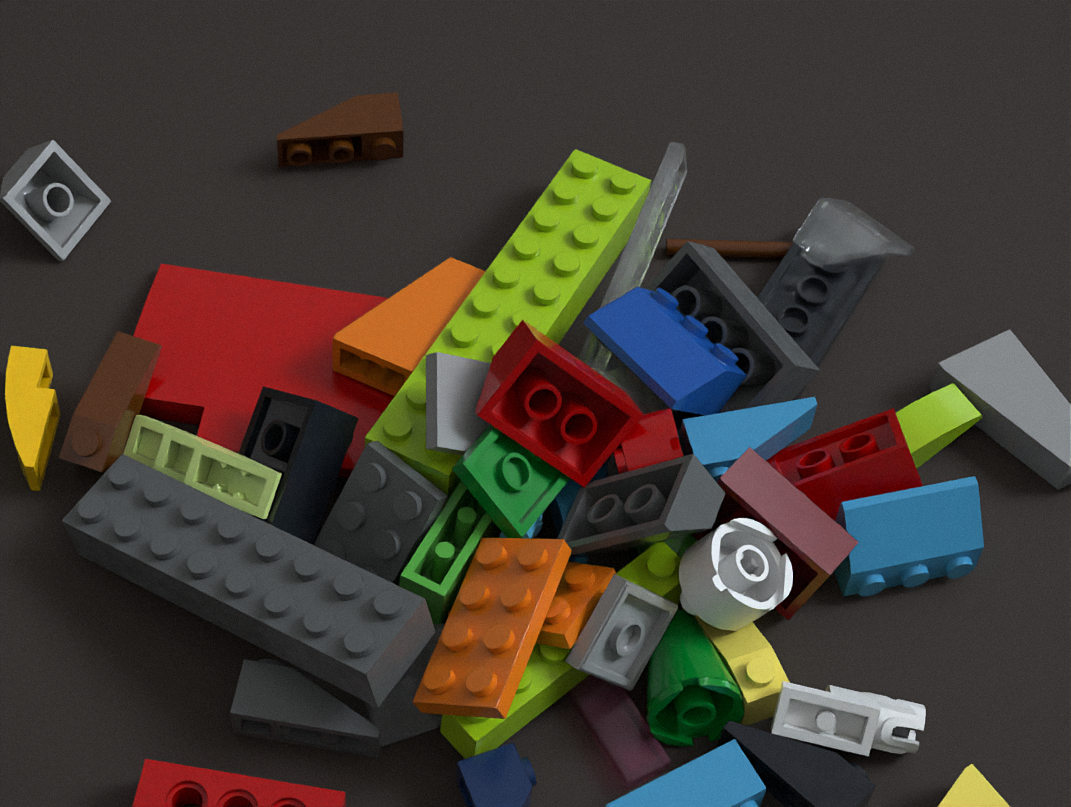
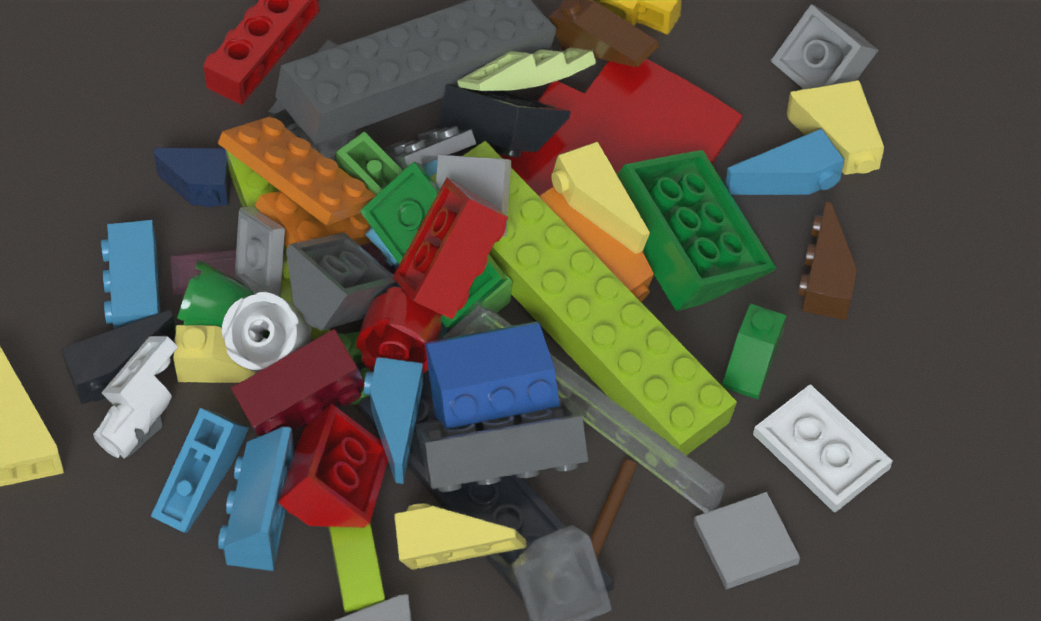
camera: 115 degrees right, 0 degrees up
(148, 163) = (844, 118): none -> light yellow slope
(221, 187) = (790, 169): none -> dark azure slope
(359, 255) = (696, 230): none -> green slope
(385, 311) = (598, 194): none -> light yellow slope
(486, 169) = (754, 351): none -> green slope
(571, 94) = (822, 448): none -> white plate
(706, 128) = (746, 540): none -> light grey tile
(853, 352) = (439, 536): none -> light yellow slope
(889, 623) = (199, 468): none -> dark azure slope

